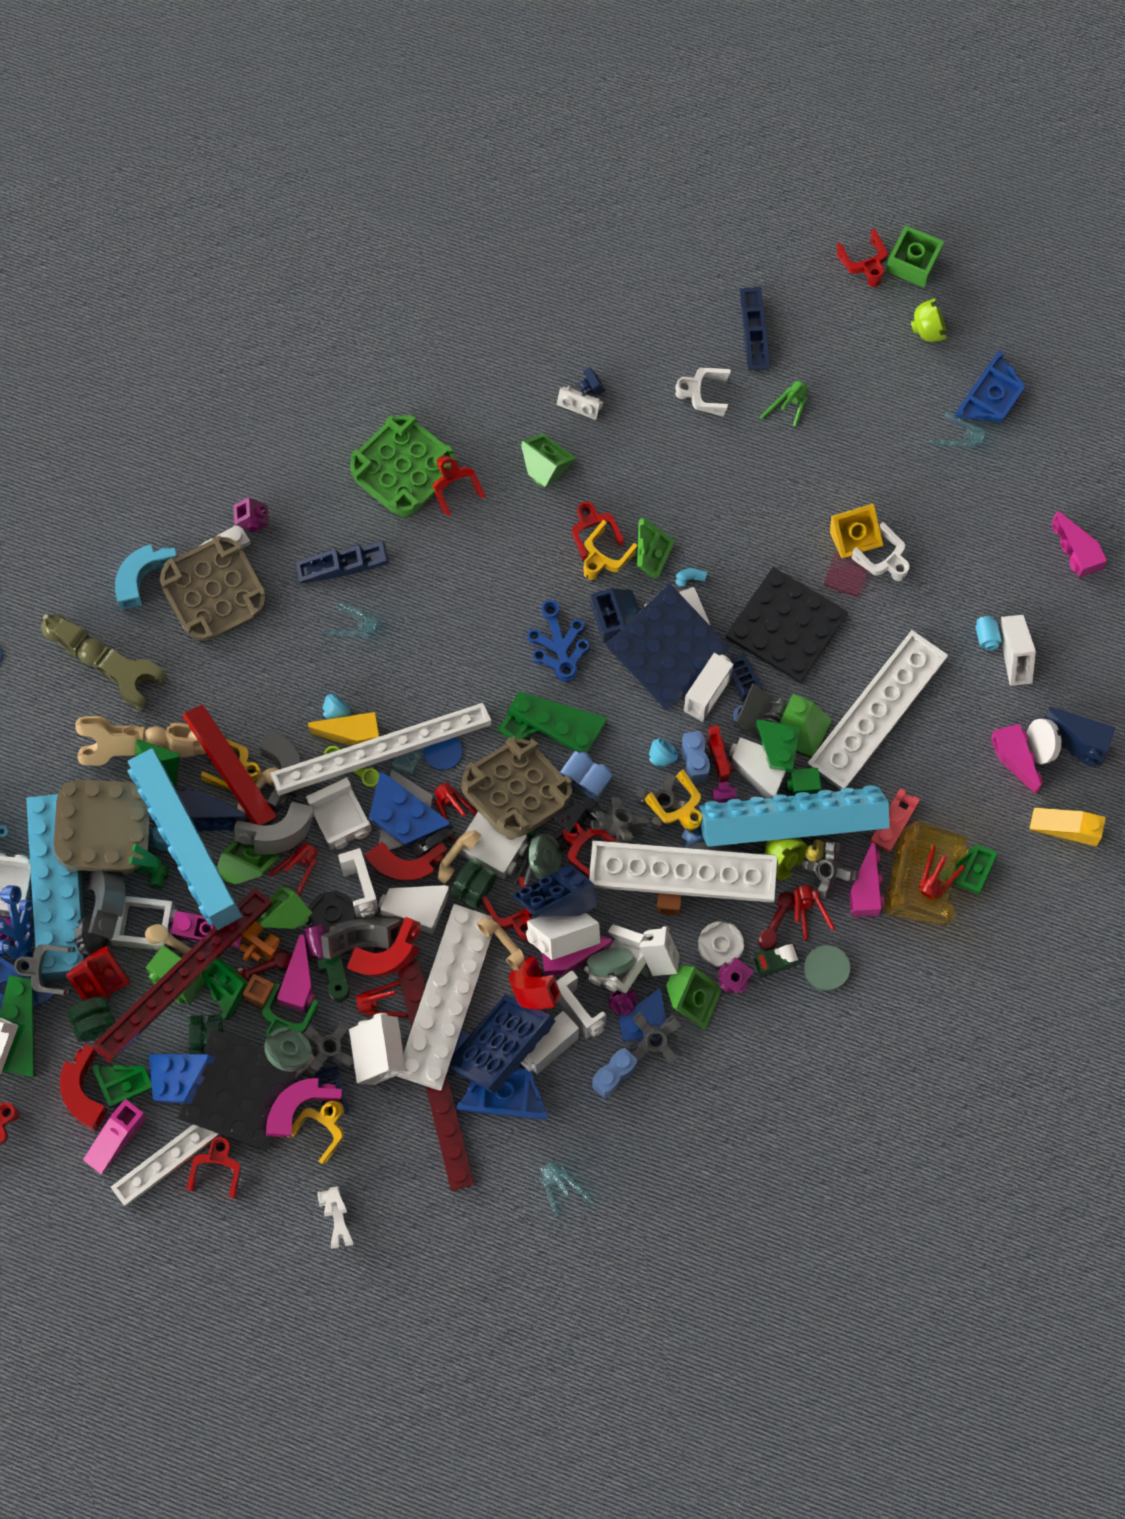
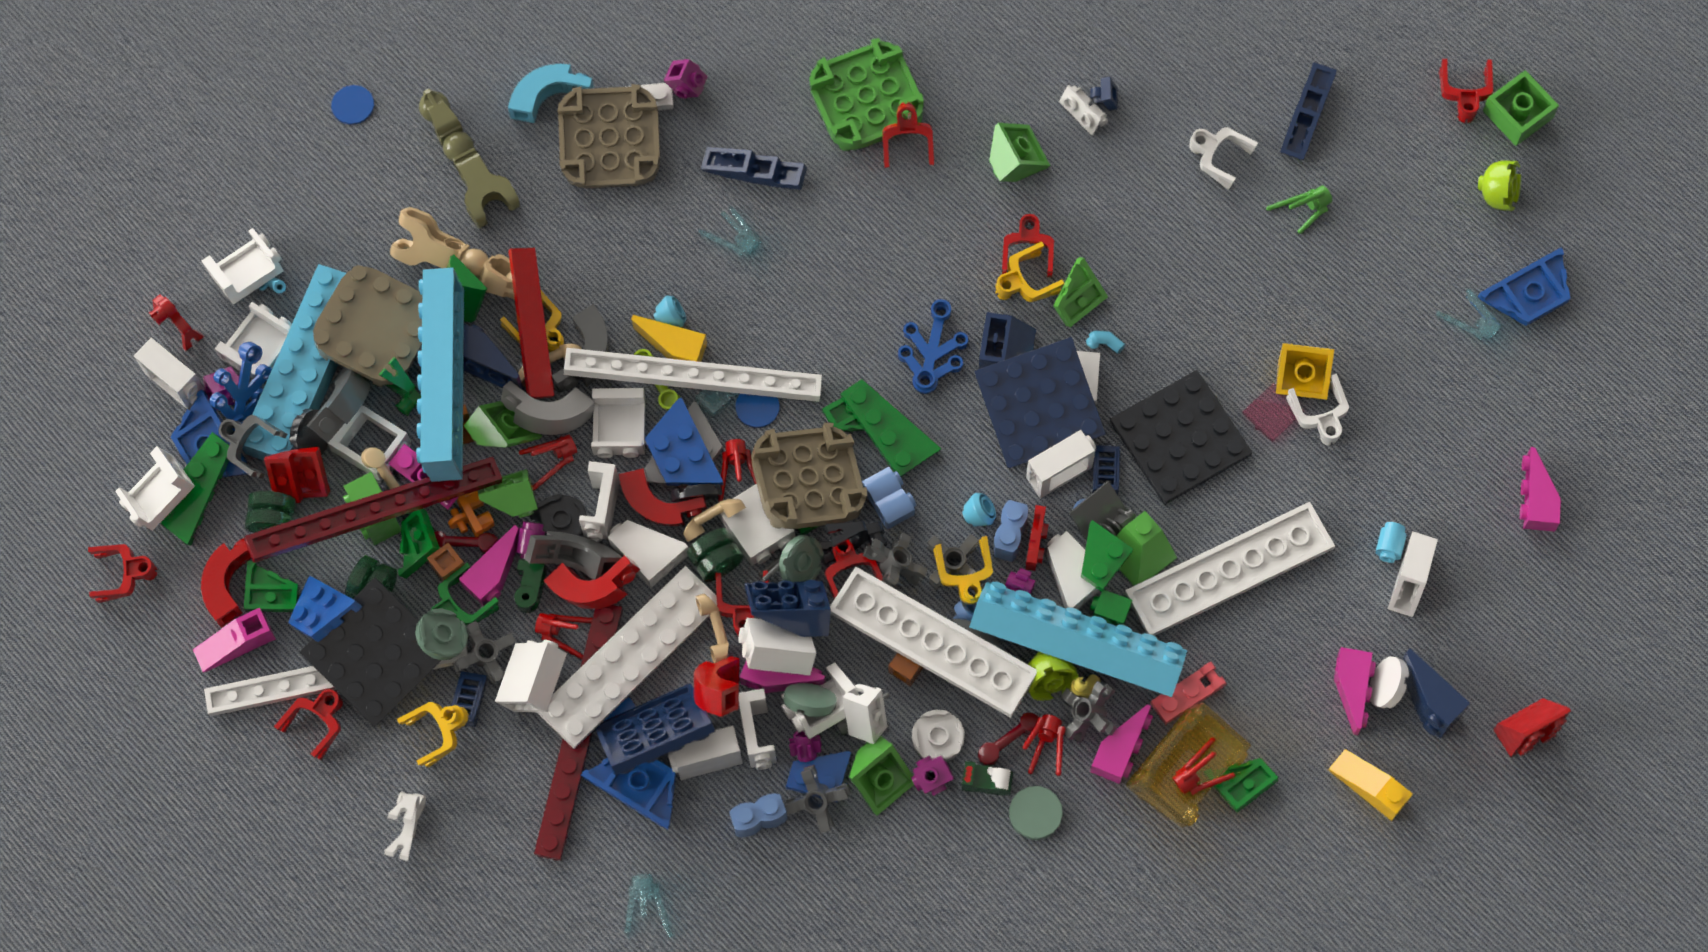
camera: 30 degrees right, 0 degrees up
(281, 1113) = (419, 684): dark pink arch -> none

